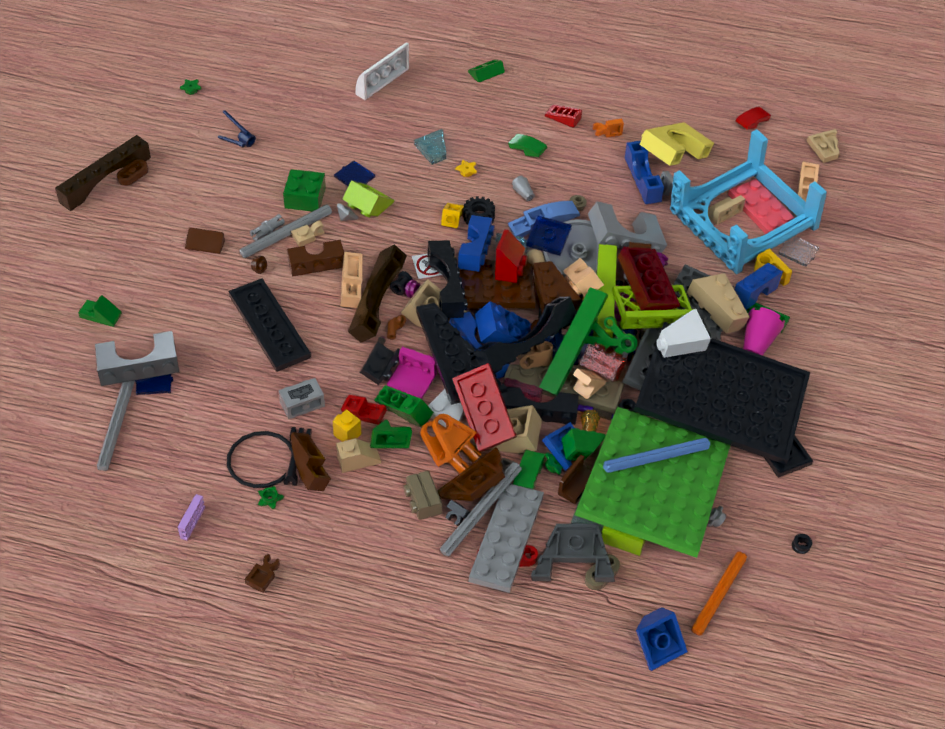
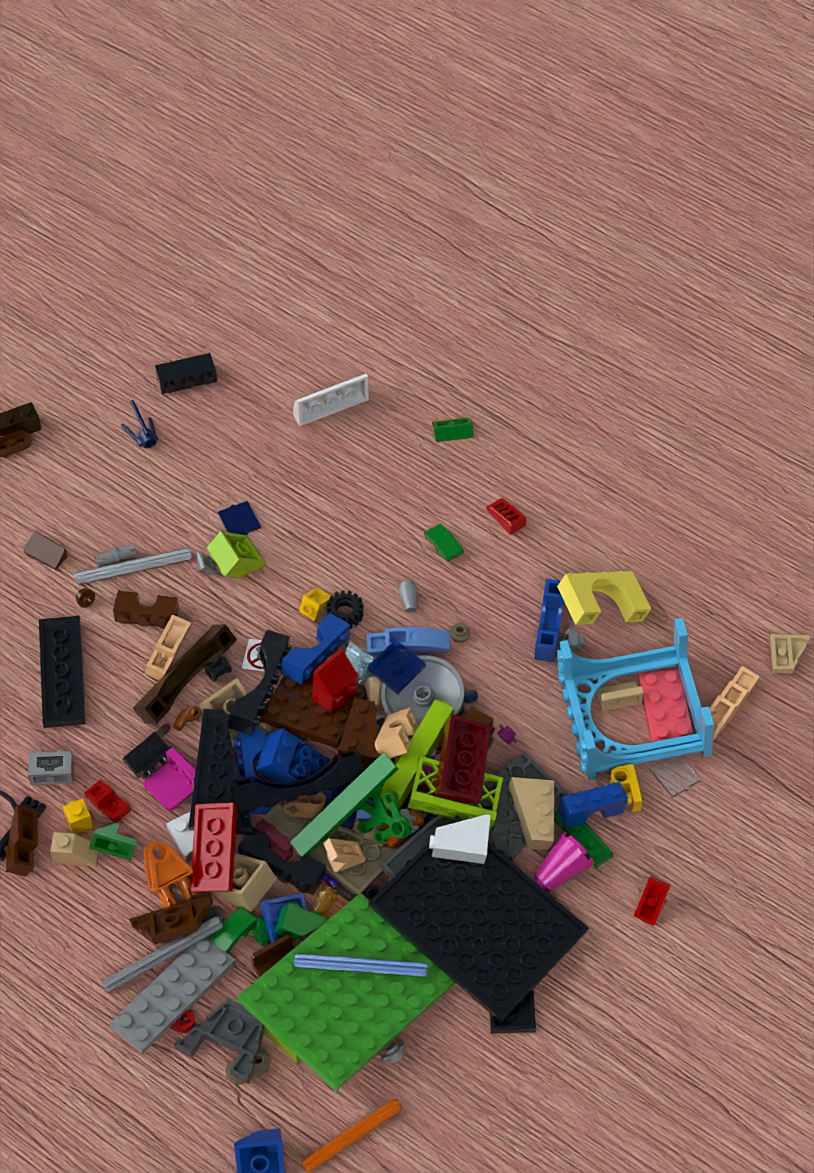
camera: 25 degrees right, 5 degrees up
(191, 87) = (121, 357): green plate -> none
(253, 86) = (185, 373): none -> black brick
(304, 190) = (173, 523): green brick -> none
(306, 235) = (151, 576): tan plate -> none
(405, 405) = (146, 813): green slope -> none
(411, 288) = (224, 678): magenta plate -> none
(423, 495) = (115, 917): dark tan brick -> none
(432, 146) = (340, 510): clear light blue wing -> none
(458, 510) = (139, 946): black tile -> none
(466, 169) = (361, 555): yellow plate -> none
(603, 362) = (368, 838): clear red brick -> none
(610, 129) = (547, 550): orange plate -> none
(611, 232) = (460, 691): light grey arch -> none
(752, 117) = (722, 587): red slope -> none
(801, 538) = (463, 1120): black bush -> none
(842, 338) = (652, 900): none -> red slope

